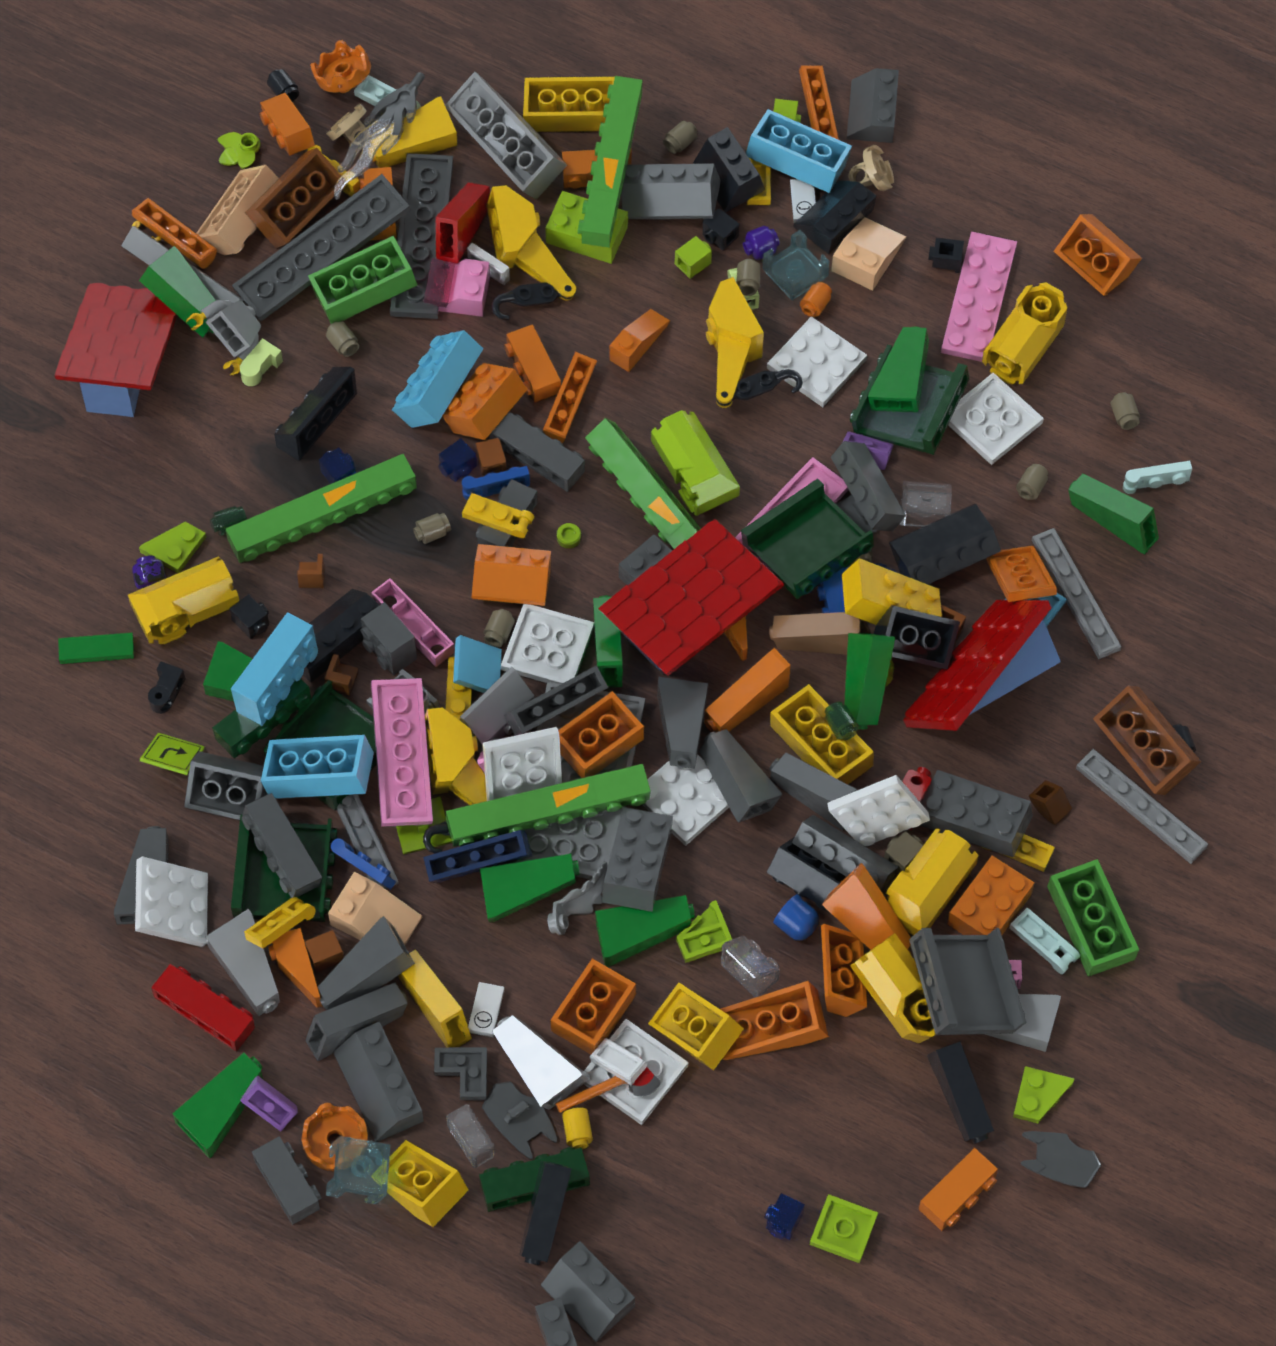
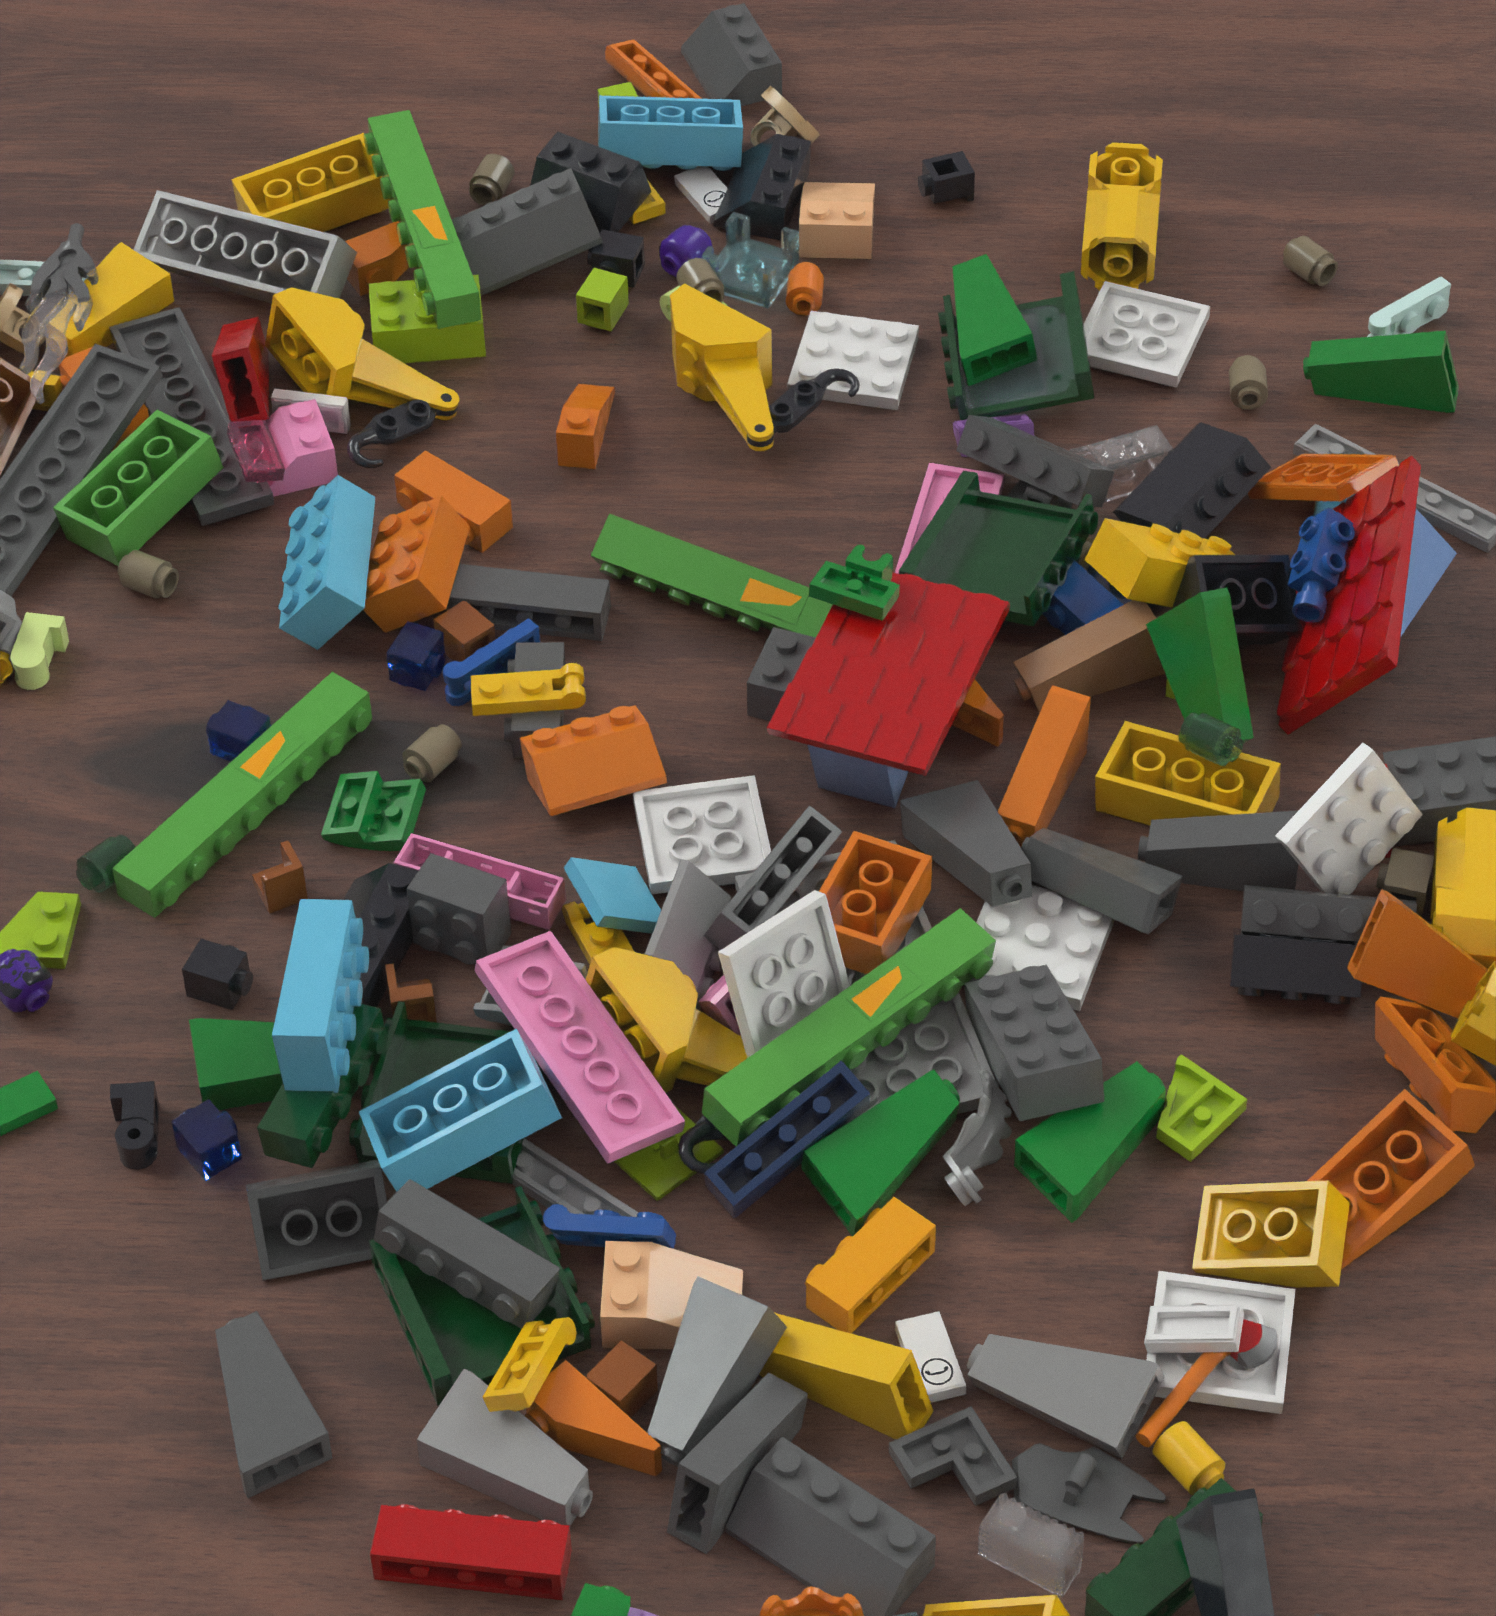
camera: 25 degrees left, 15 degrees down
(171, 753) = (202, 1208): lime piece -> none
(171, 901) = (329, 1412): white plate -> none
(183, 600) = (101, 986): yellow brick -> none
(195, 713) = (207, 1139): none -> clear blue brick
(316, 412) = (163, 673): black slope -> none
(384, 550) = (373, 812): none -> green slope
(483, 945) = (870, 1265): none -> light orange brick
(498, 627) = (615, 837): dark tan brick -> none
(568, 535) = (641, 689): lime tile -> none
(569, 397) = (533, 517): orange brick -> none
(593, 1006) = (1101, 1275): orange brick -> none
(607, 646) = (790, 782): green slope -> none
(694, 462) = (769, 522): lime brick -> none
(700, 539) = (858, 585): none -> green plate
(749, 965) = (1292, 1121): clear slope -> none
(797, 919) = (1318, 1027): blue helmet -> none
(968, 633) = (1318, 562): none -> blue brick
(978, 296) = (1021, 214): bright pink plate -> none
(1097, 254) = (1143, 110): orange slope -> none

